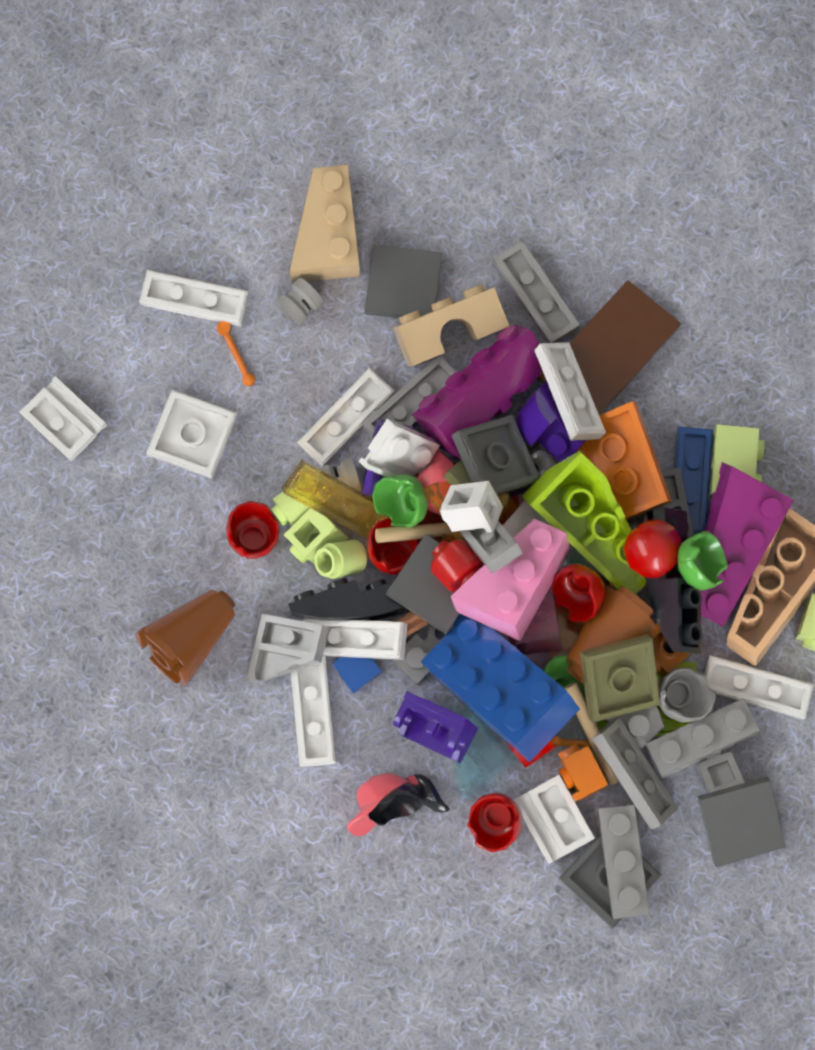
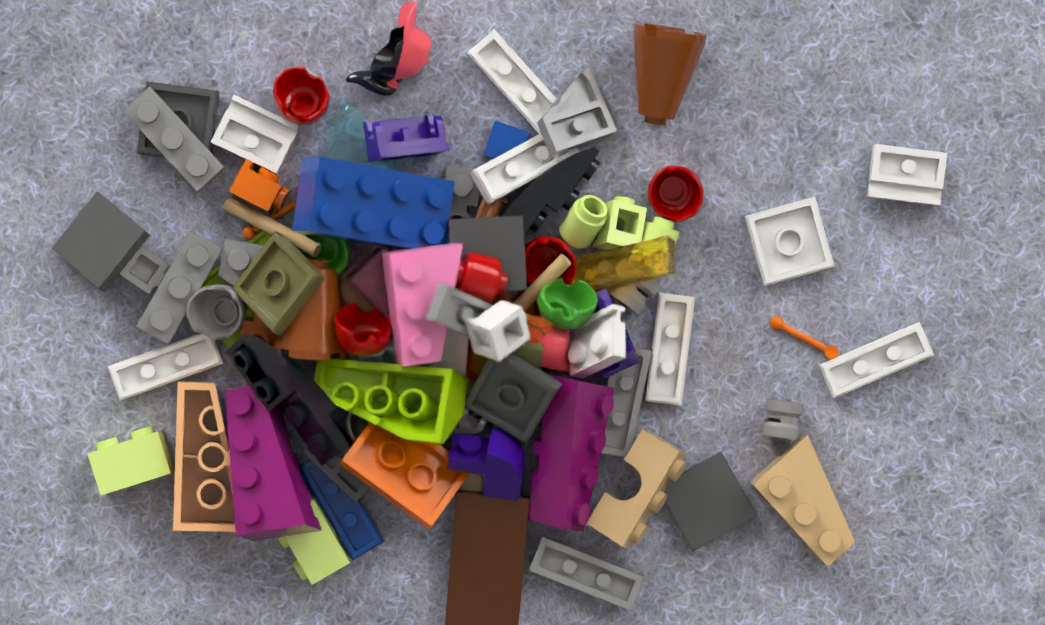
camera: 145 degrees right, 10 degrees up
(570, 391) = (492, 498): white tile -> none
(635, 773) = (214, 217): light grey plate -> none
(652, 548) = (325, 408): red hair -> none
(702, 561) = (276, 424): bright green hair -> none

